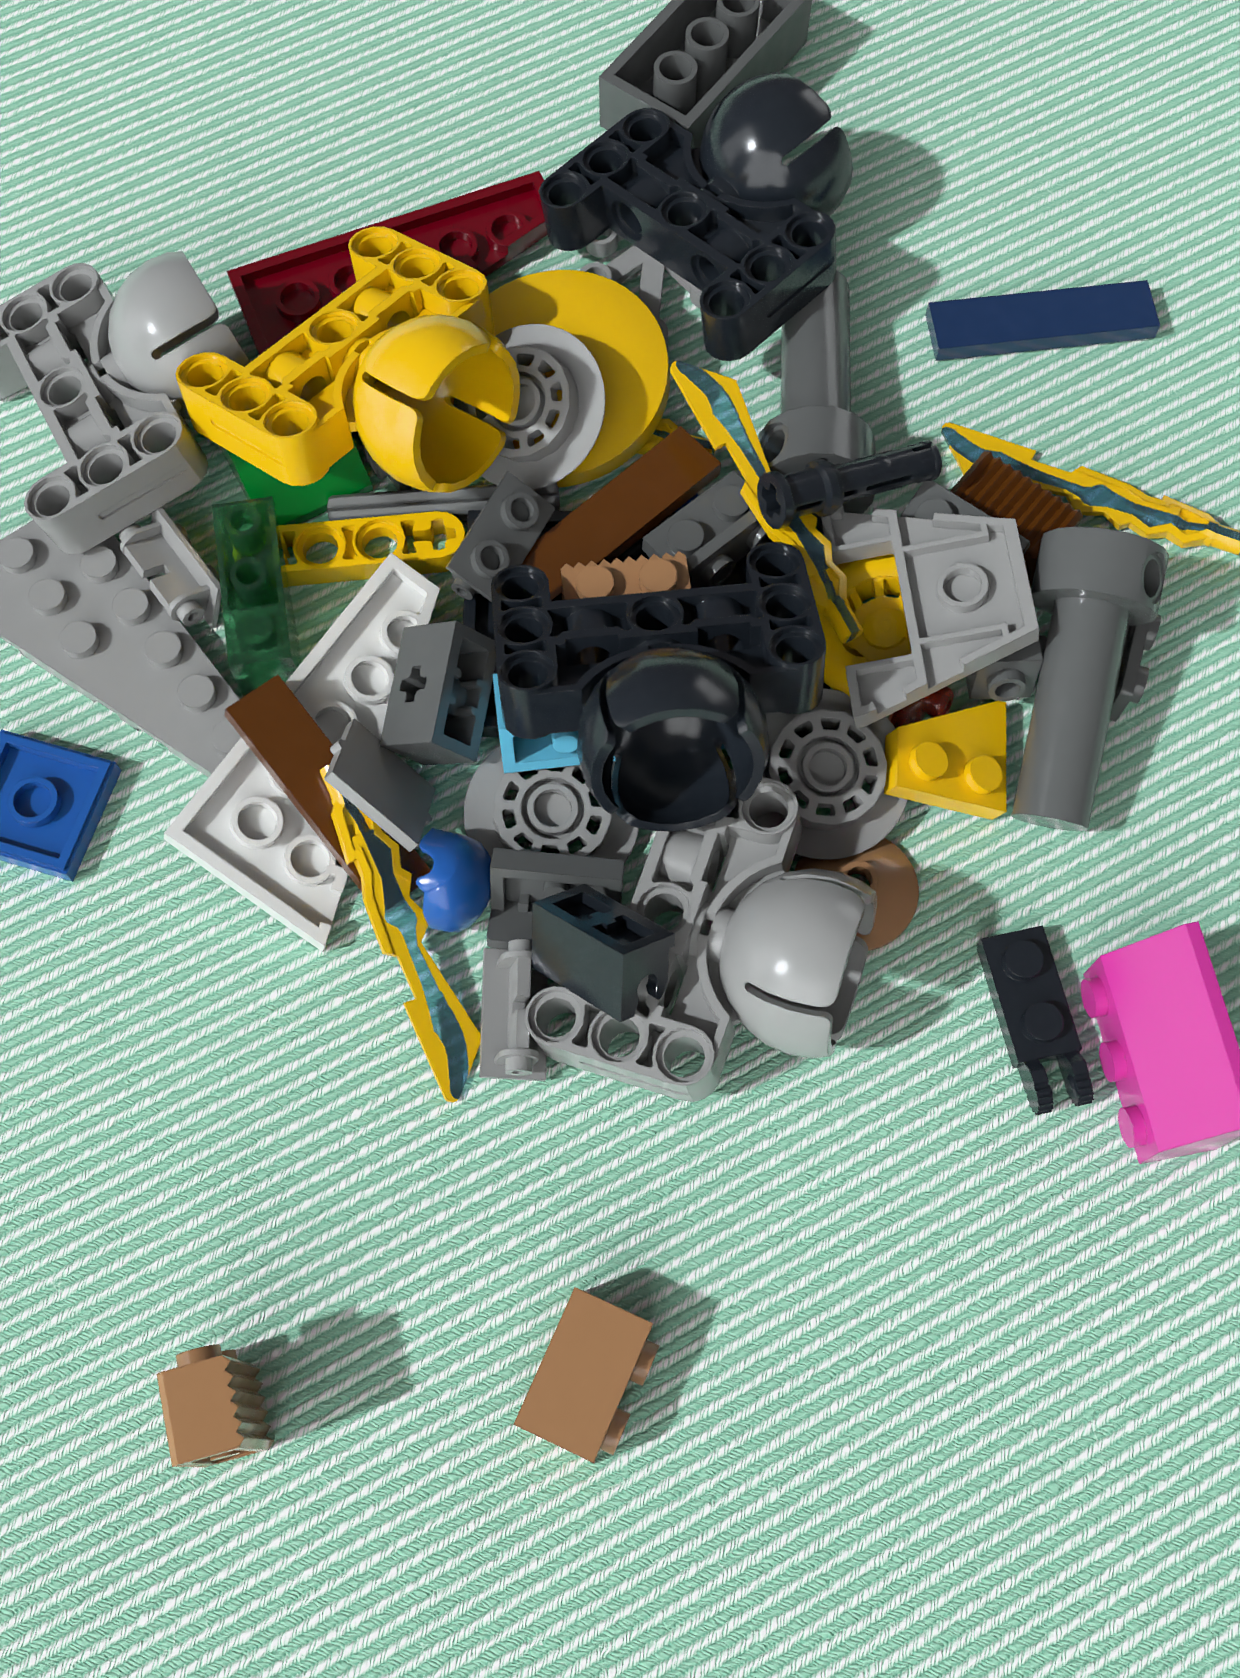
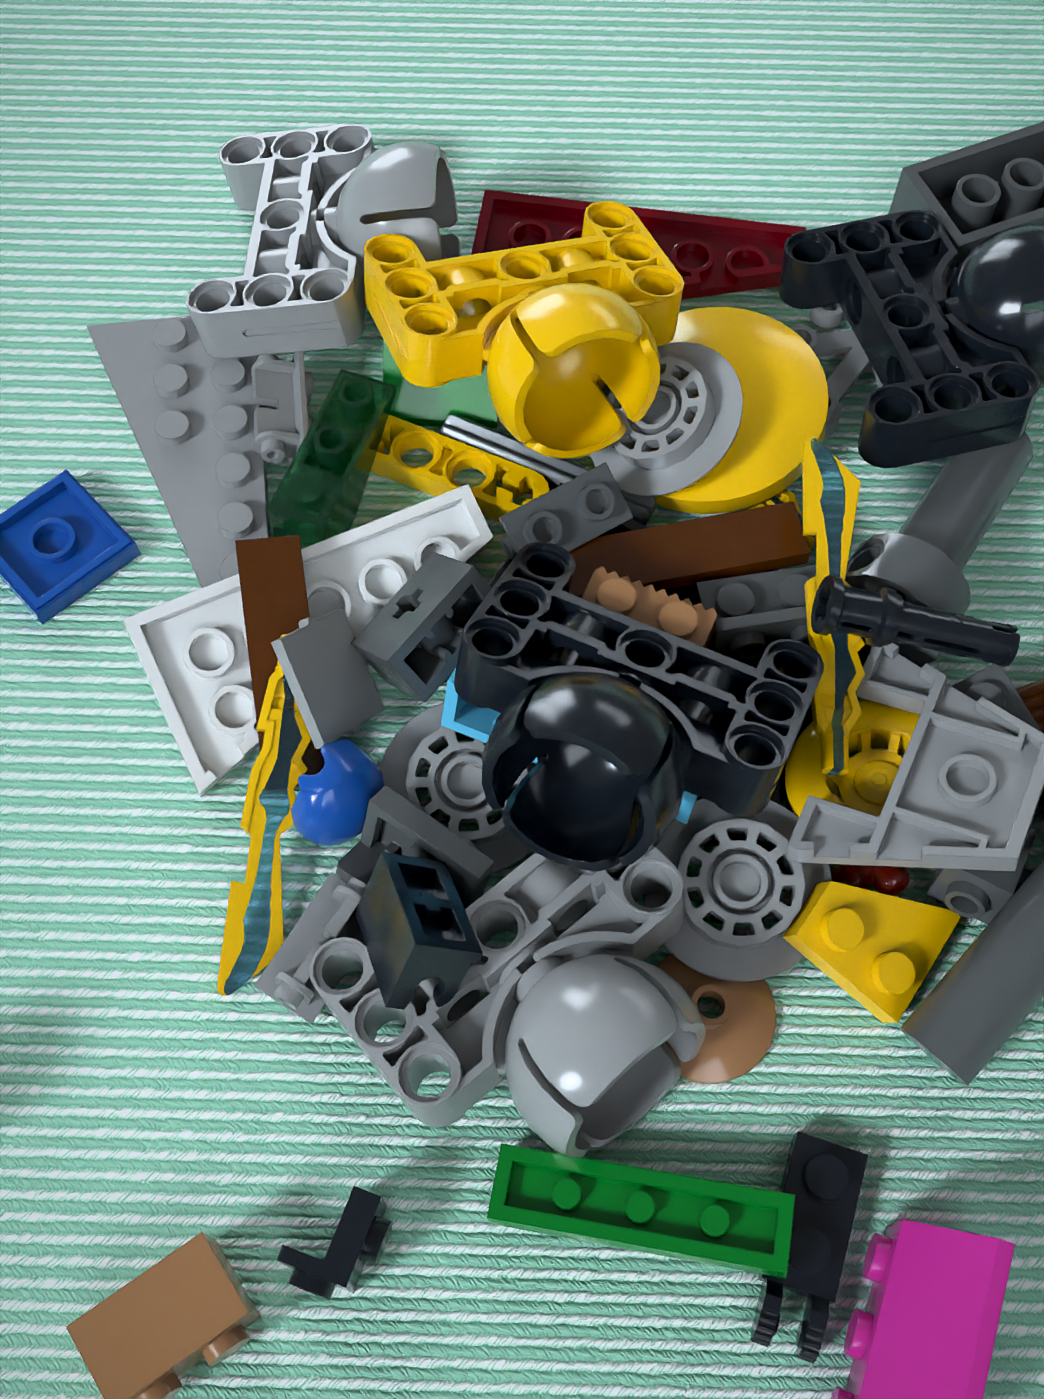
camera: 30 degrees right, 5 degrees down
(697, 1219) = (357, 1240): none -> black bracket
(901, 1066) = (643, 1210): none -> green plate

